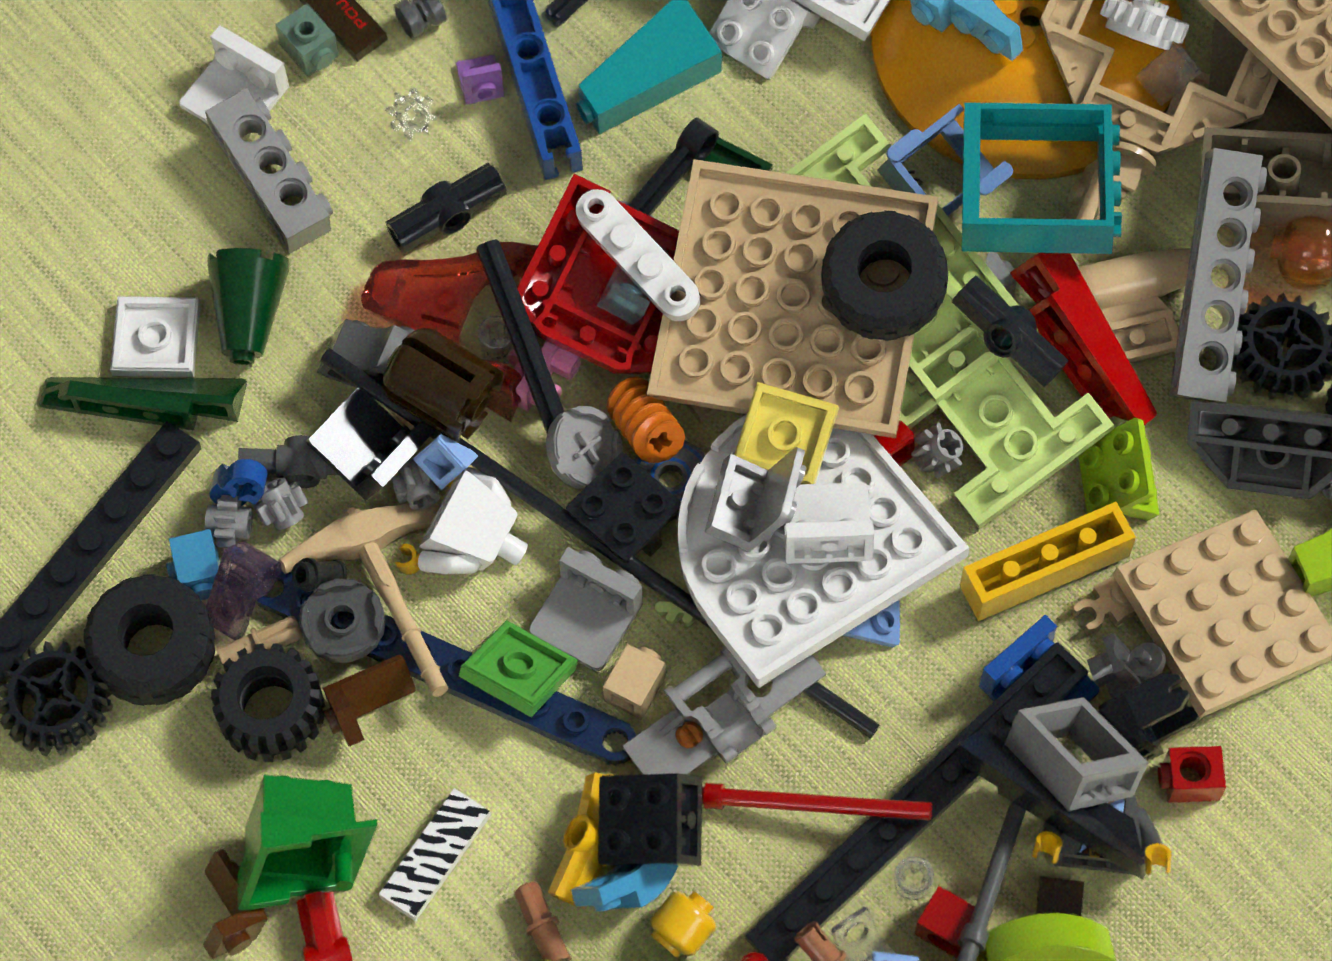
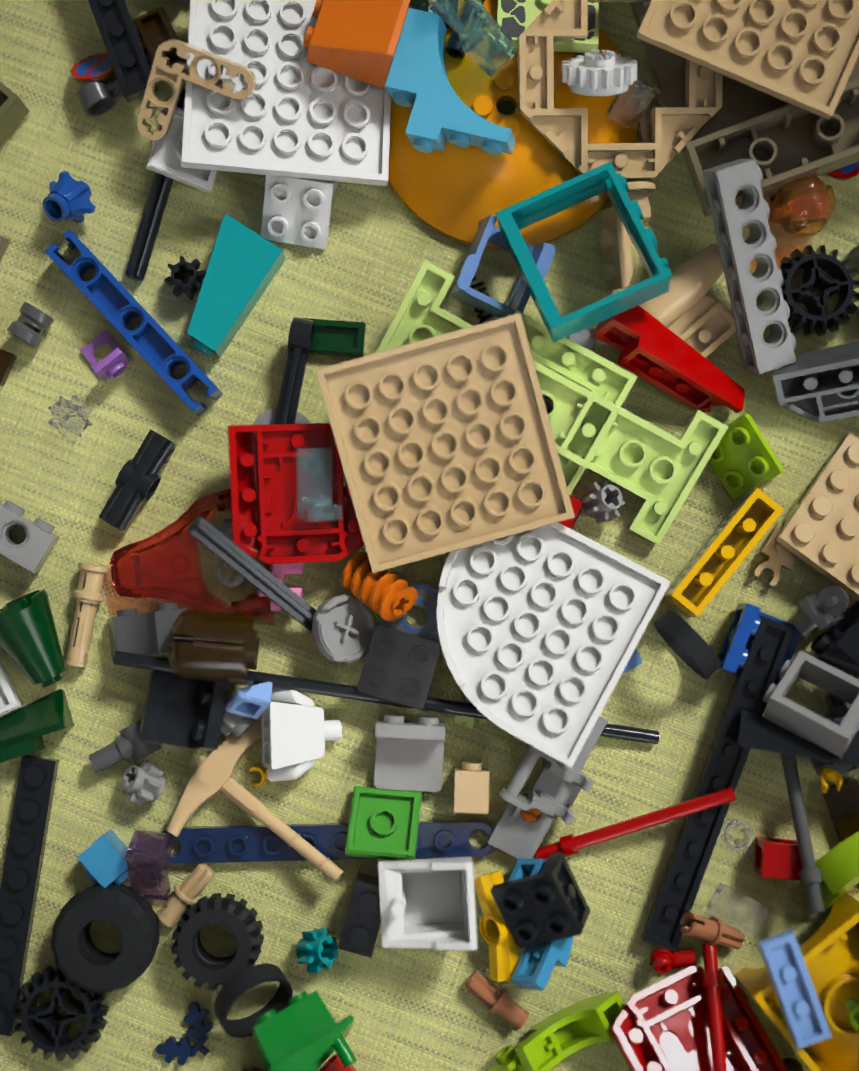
camera: 25 degrees left, 20 degrees up
(164, 811) = (199, 1031): none -> dark blue animal
(229, 521) = (112, 815): light grey gear -> none
(242, 479) = (100, 790): blue piece -> none
(260, 740) = (241, 984): none -> black tyre
(309, 573) = (196, 832): pearl dark grey pin -> none
(327, 297) = (88, 597): none -> tan pin
(347, 643) = (232, 873): dark grey tile -> none
(365, 693) = (277, 899): reddish brown bracket -> none
(370, 767) = (316, 950): none -> teal gear
(434, 854) = (393, 993): tile -> none
(444, 754) = (362, 917): none -> black brick
(524, 756) = (428, 903): none -> white piece
(604, 37) = (178, 273): none -> black gear
(638, 255) = (311, 470): white plate -> none
(683, 923) = (595, 953): yellow head -> none
(753, 500) = (501, 627): light grey bracket -> none
(782, 421) = (494, 559): light yellow plate -> none
(830, 524) = (560, 616): white bracket -> none
(884, 237) = (549, 410): black tyre -> none
(957, 631) = (687, 644): none -> black tyre
(1010, 331) = (623, 394): black piece -> none

